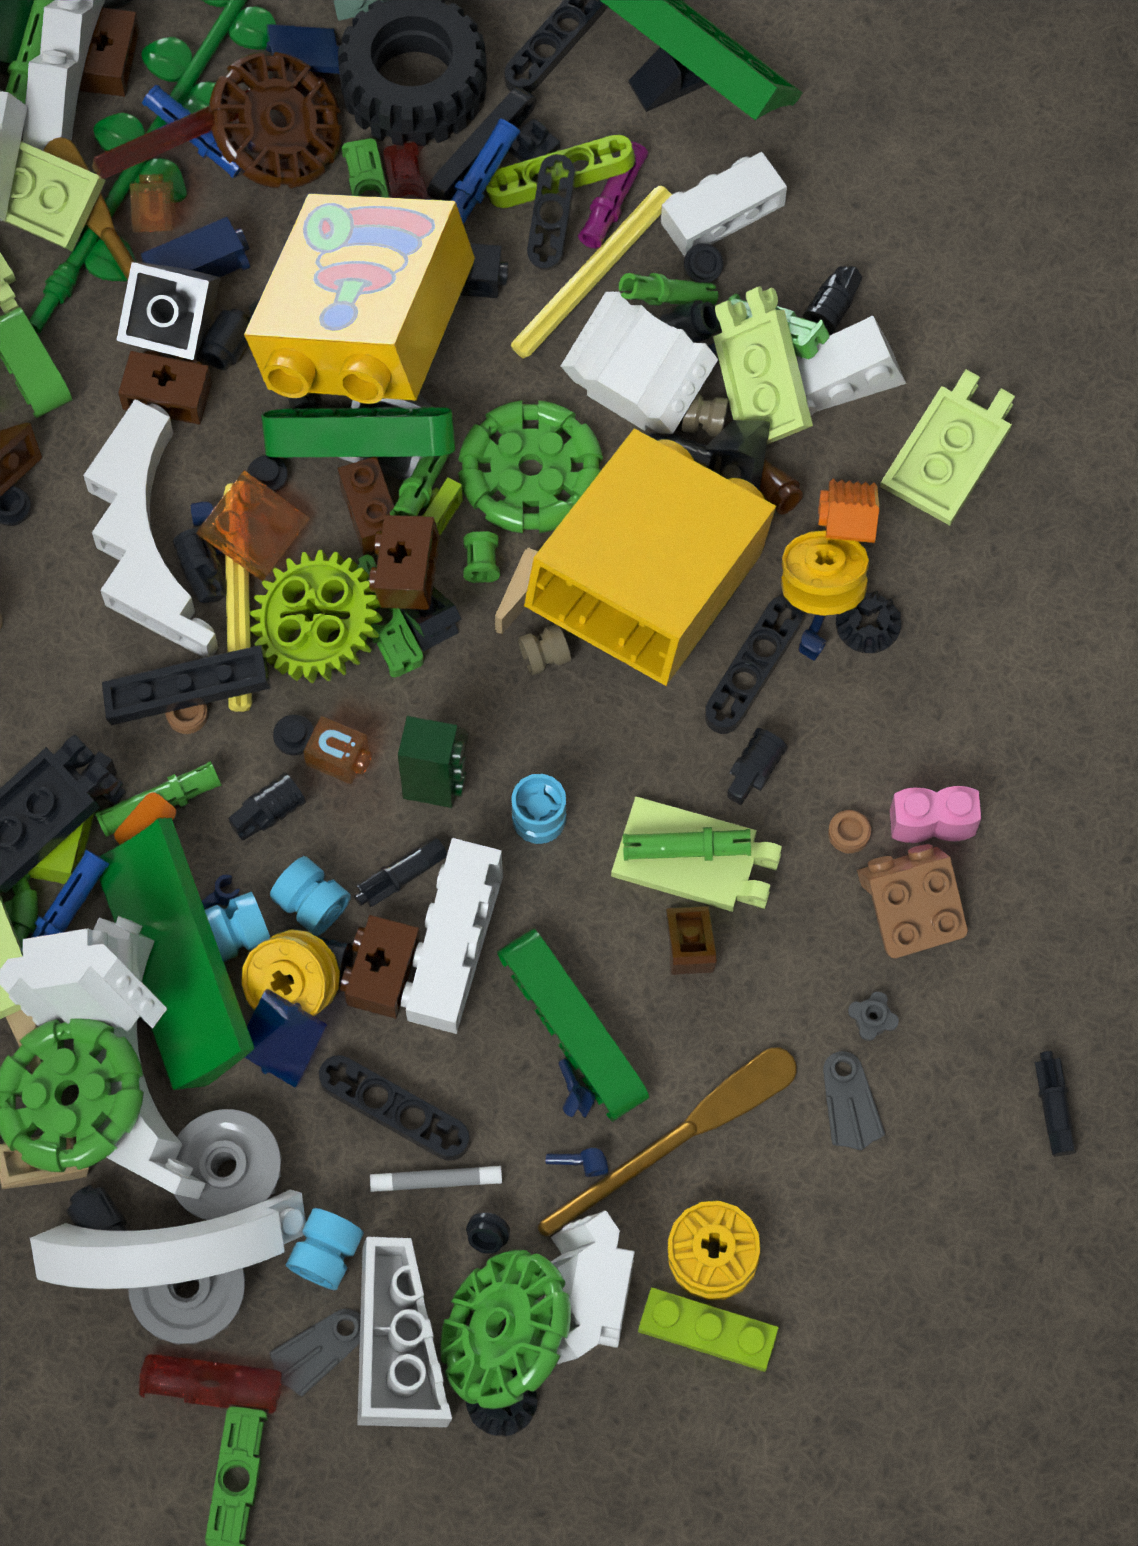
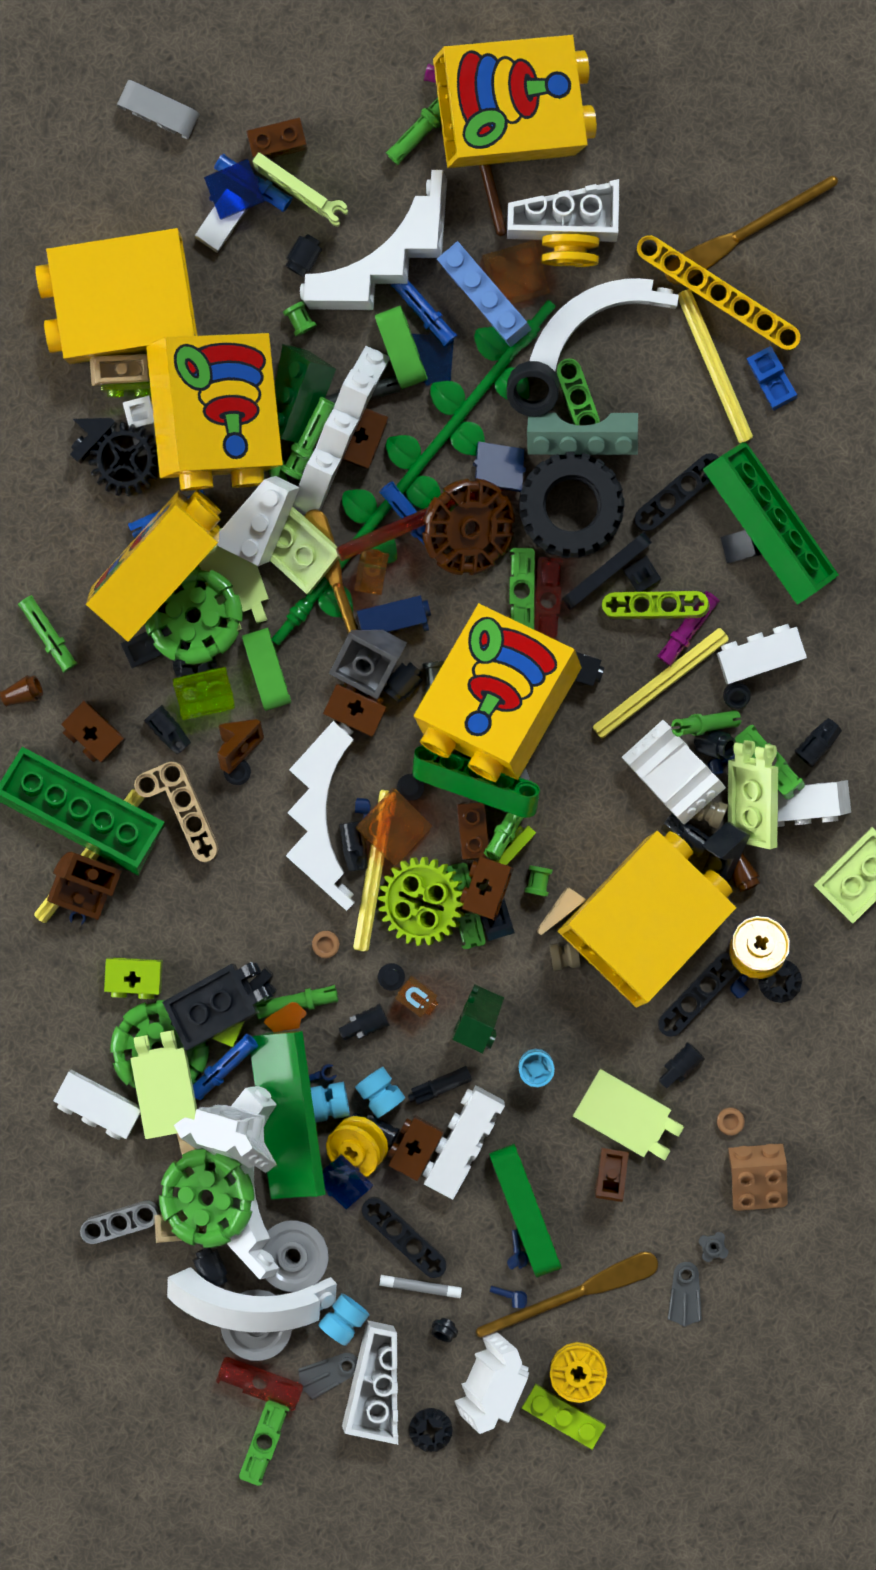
camera: 10 degrees right, 20 degrees up
(186, 685) = (328, 931): black plate -> none
(482, 1361) = (453, 1404): bright green plate -> none
(484, 167) = (591, 606): blue pin -> none
(528, 444) = (585, 837): bright green plate -> none
(565, 184) = (641, 658): black beam -> none
(687, 844) = (624, 1114): bright green pin -> none
(849, 511) = (787, 909): orange brick -> none
(924, 814) = (778, 1126): bright pink brick -> none
(1055, 1104) = (810, 1328): black piece -> none

